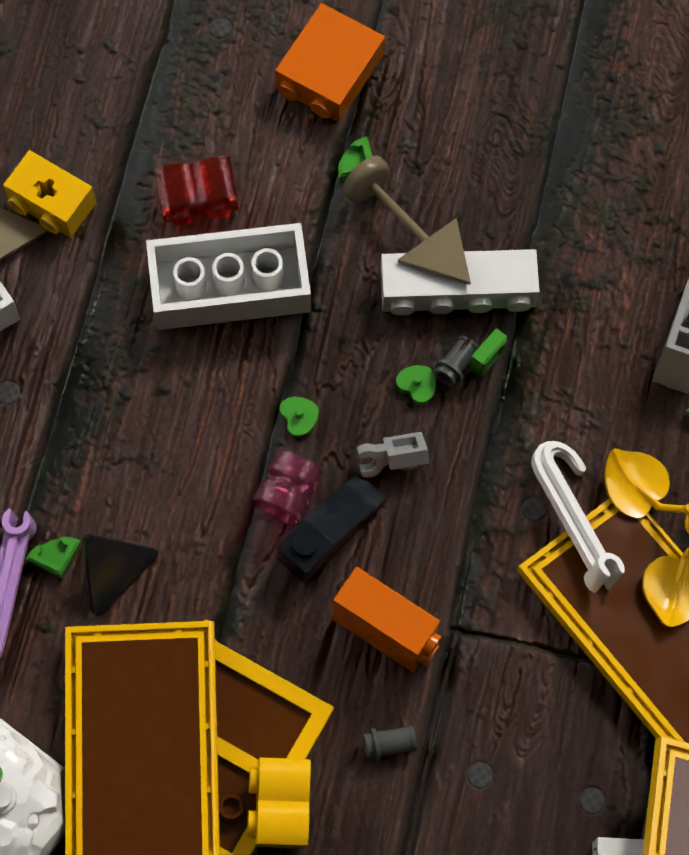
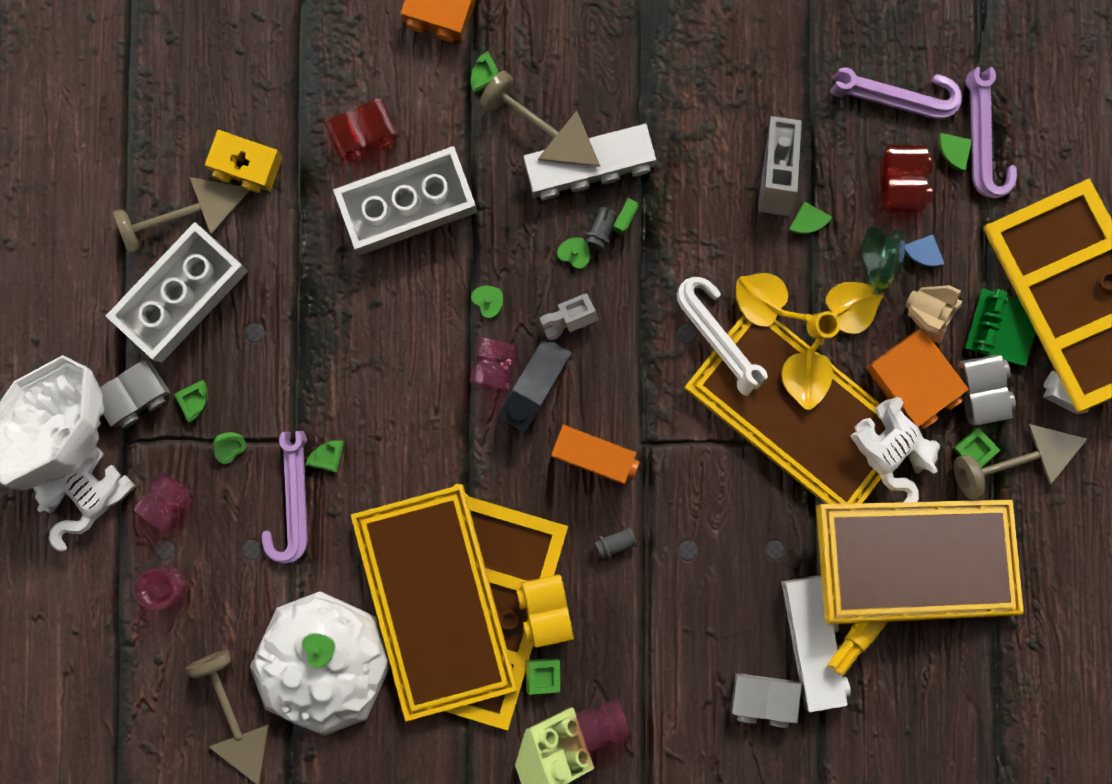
camera: 15 degrees left, 15 degrees up
(112, 568) = (373, 458): black piece -> none

